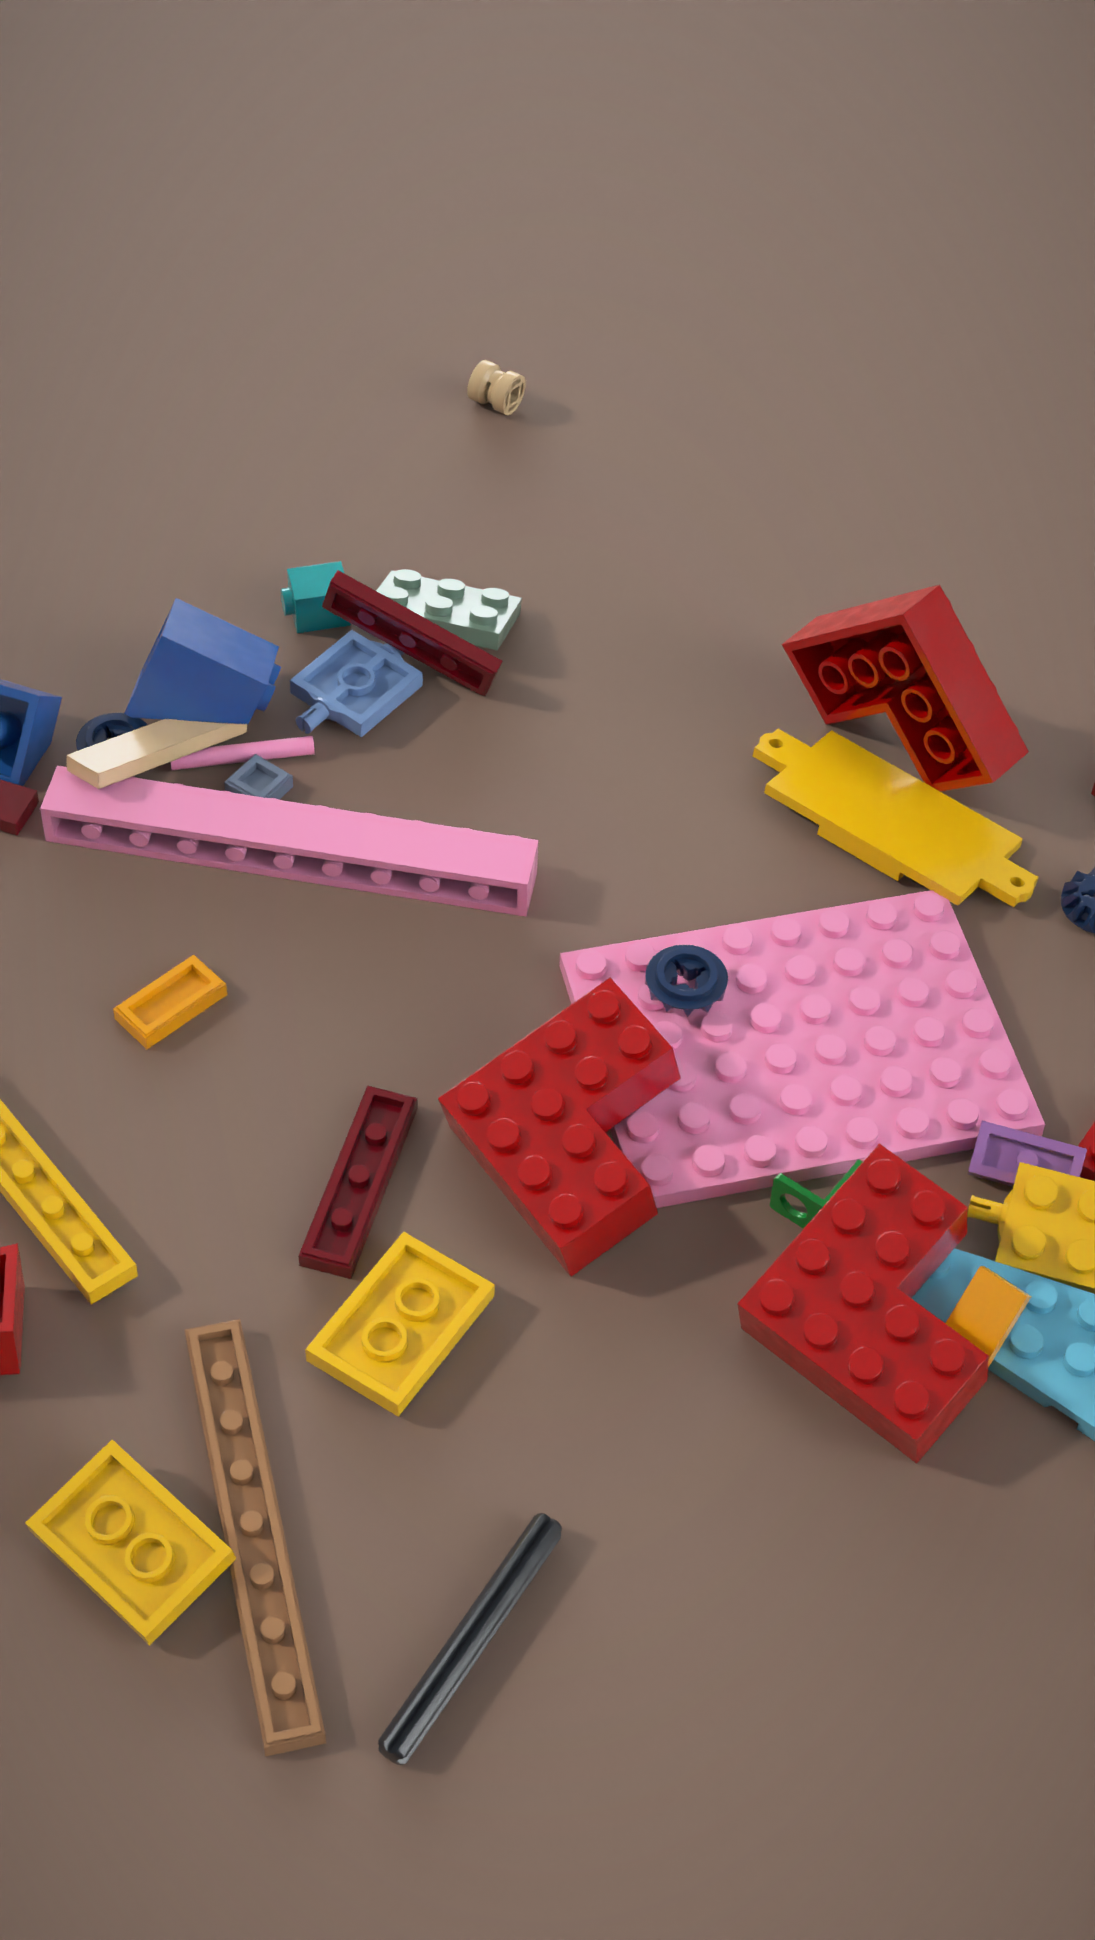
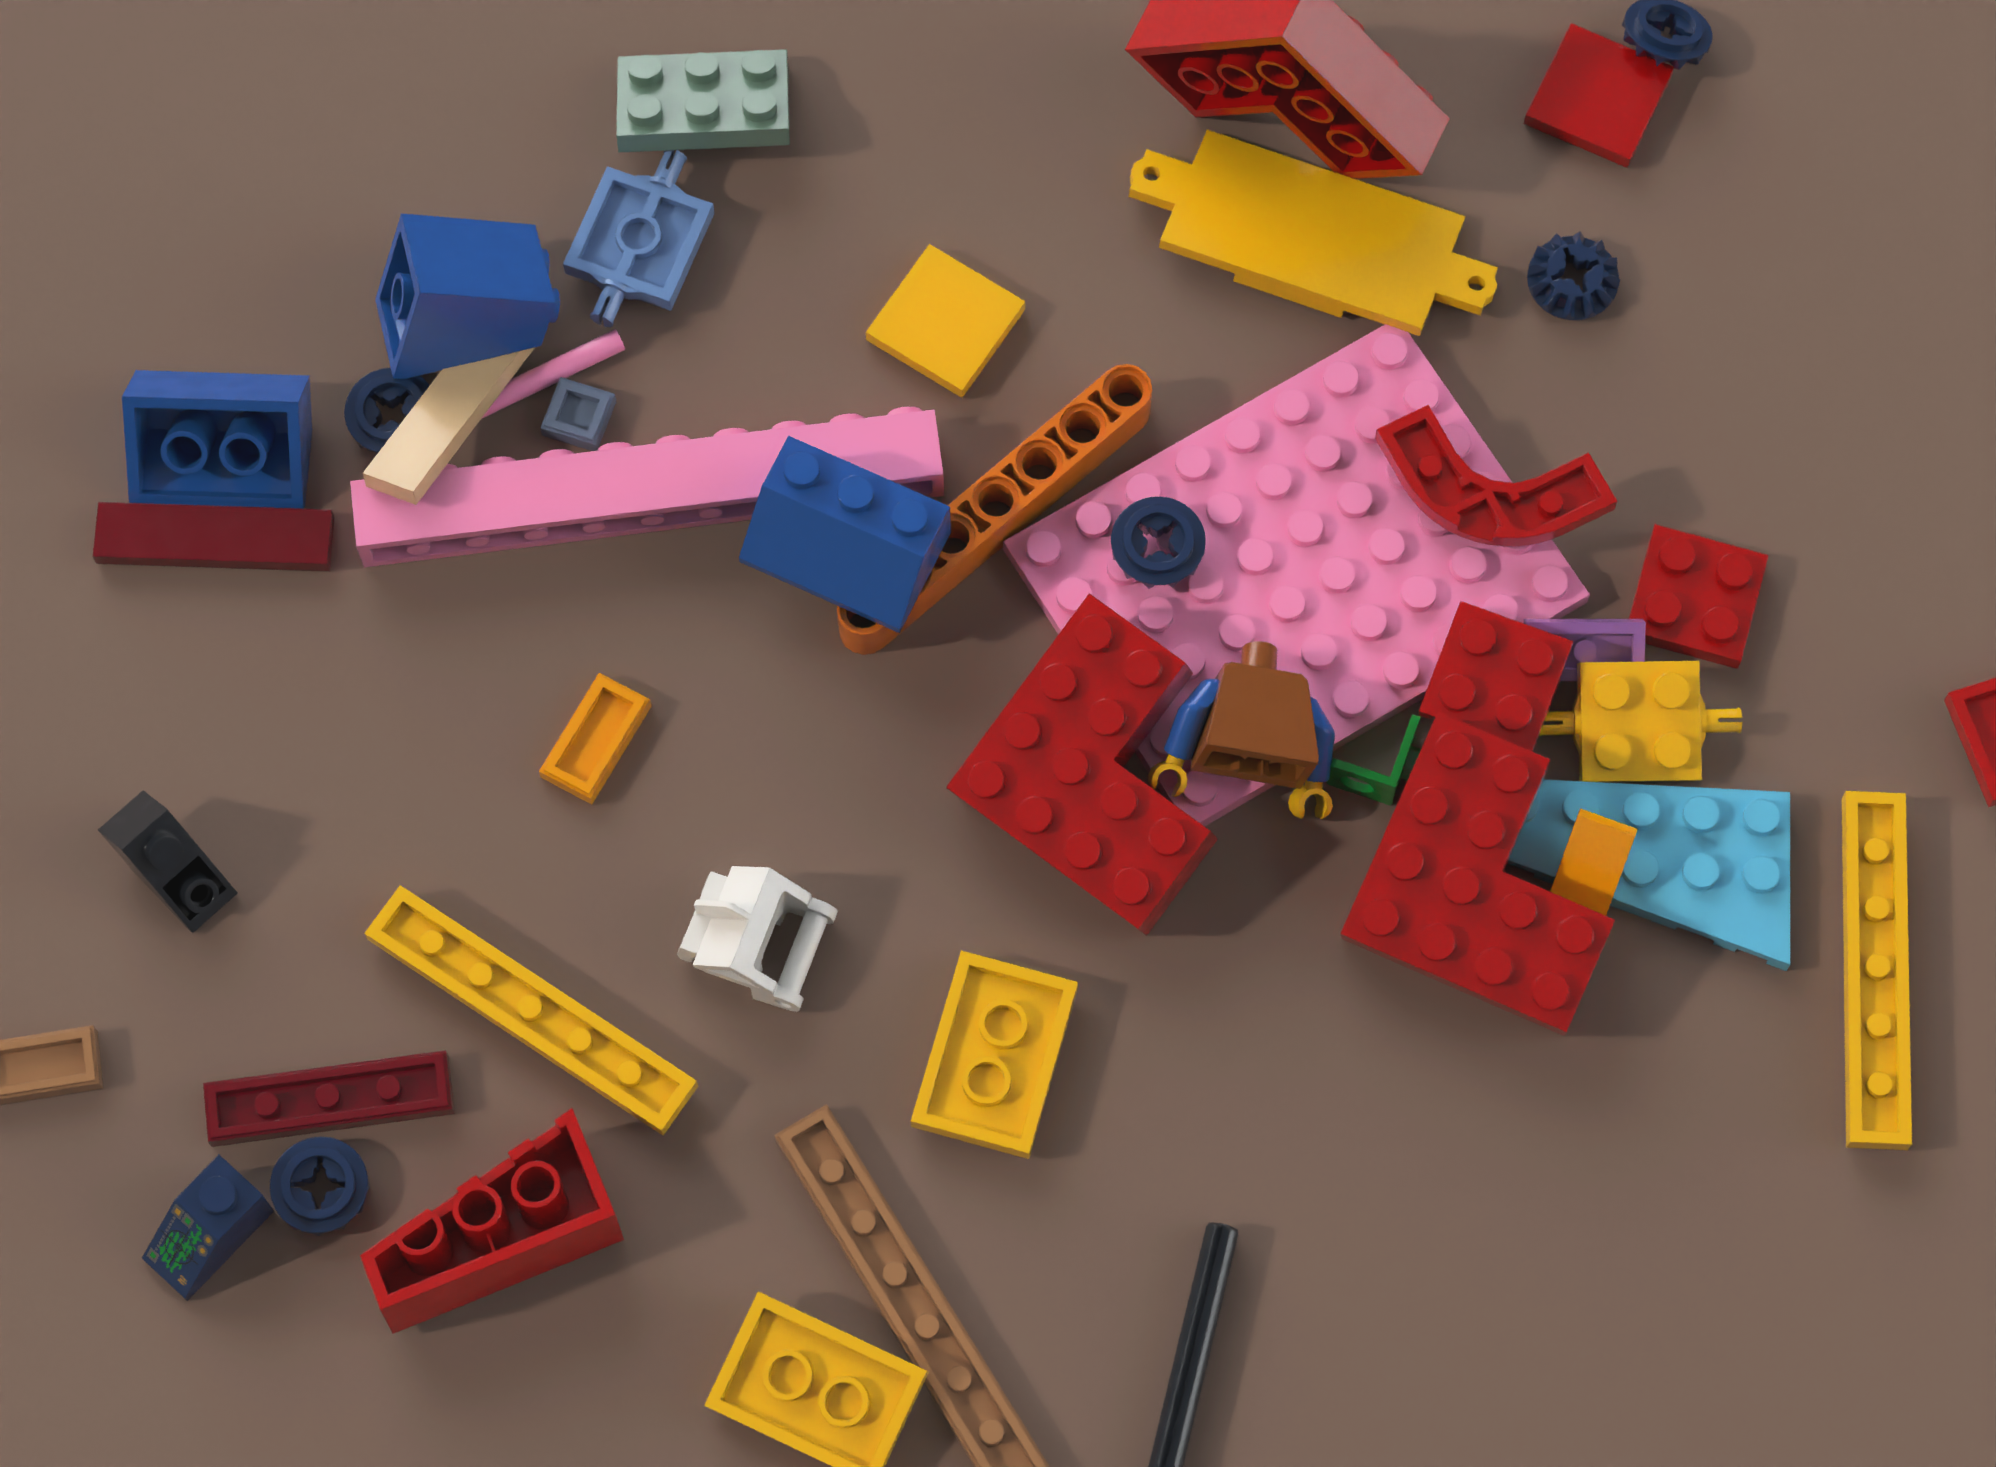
camera: 15 degrees left, 20 degrees up
(222, 1153) = (735, 926): none -> white piece
(306, 596) = (546, 128): teal brick -> none
(358, 1182) = (886, 896): dark red tile -> none
(411, 633) = (686, 162): dark red tile -> none
(429, 893) = (845, 534): none -> blue slope
(574, 799) = (945, 320): none -> yellow tile
(579, 919) = (1024, 495): none -> orange beam
(717, 1125) = (1254, 728): none -> dark orange torso
(951, 1145) = (1497, 675): none -> red plate
(977, 1030) = (1485, 508): none -> red plate

